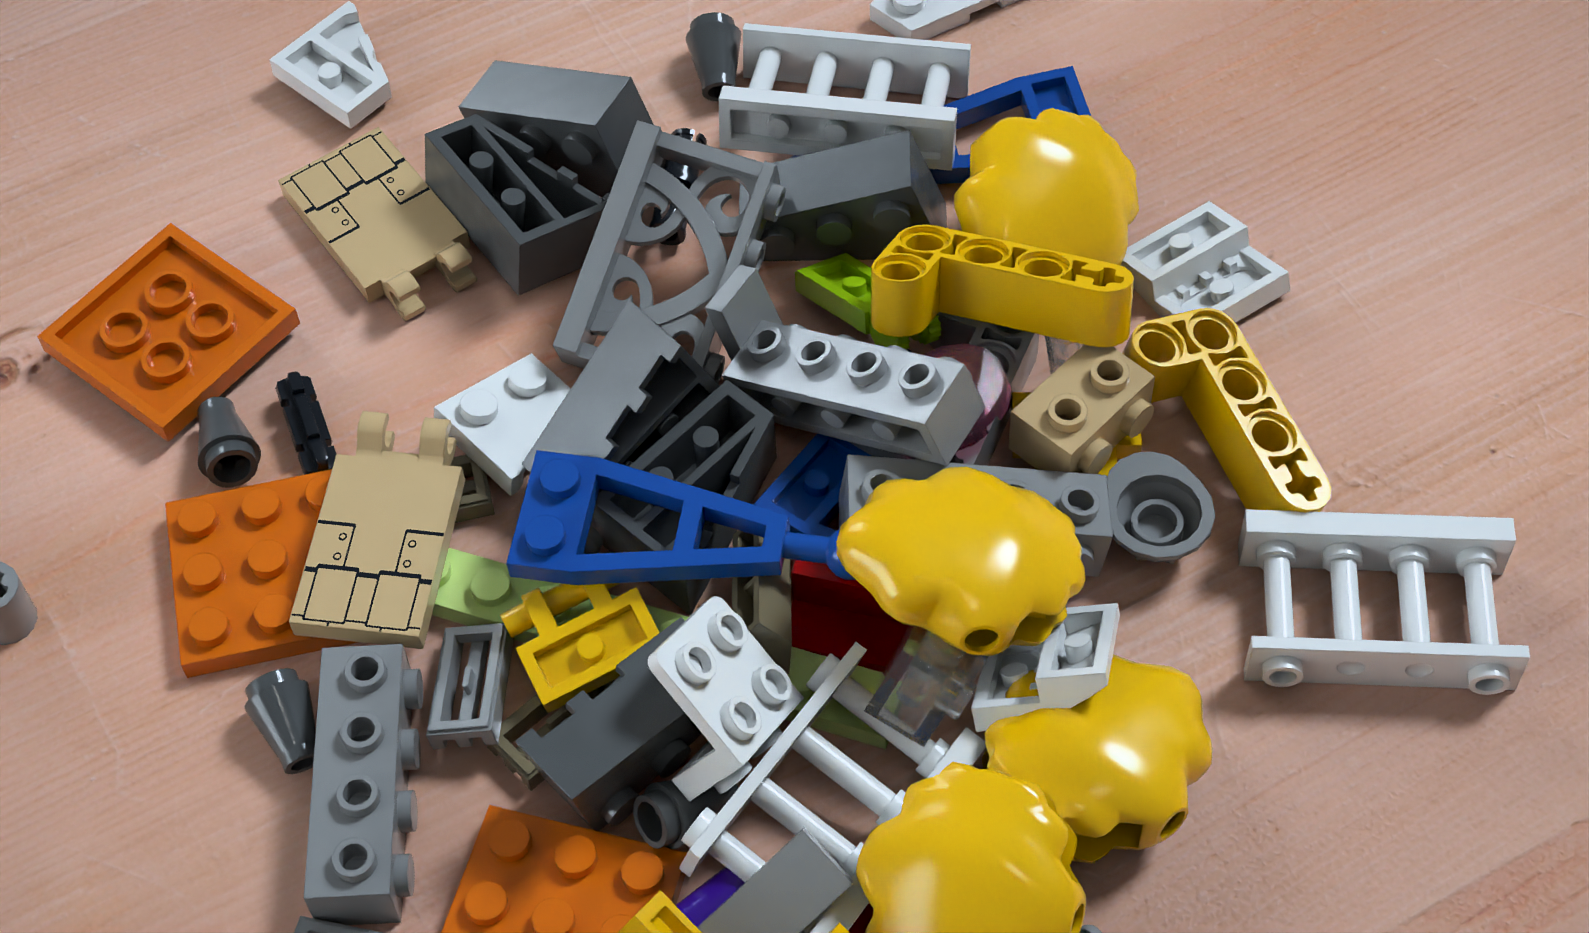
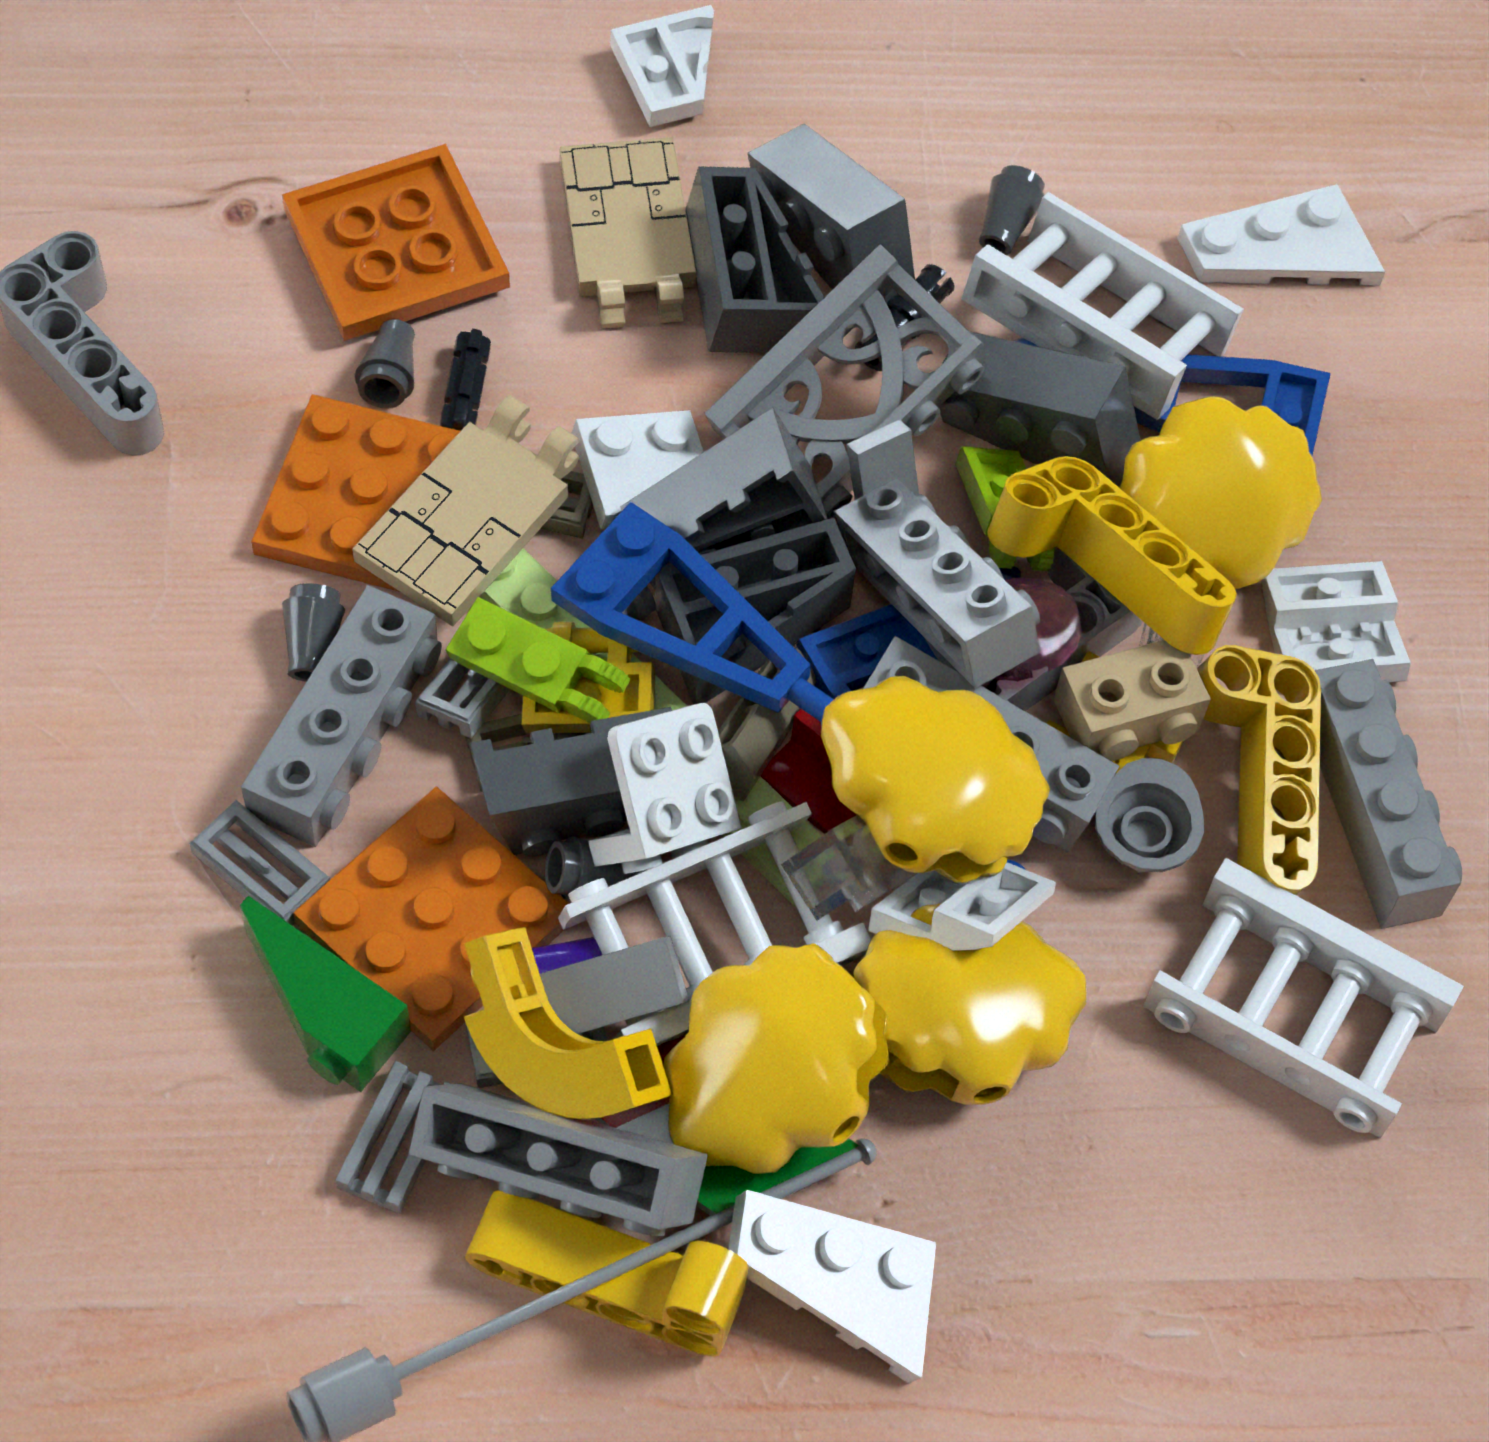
camera: 20 degrees right, 5 degrees up
(524, 640) = (532, 661): none -> lime hinge
(1344, 398) = (1382, 798): none -> light grey brick

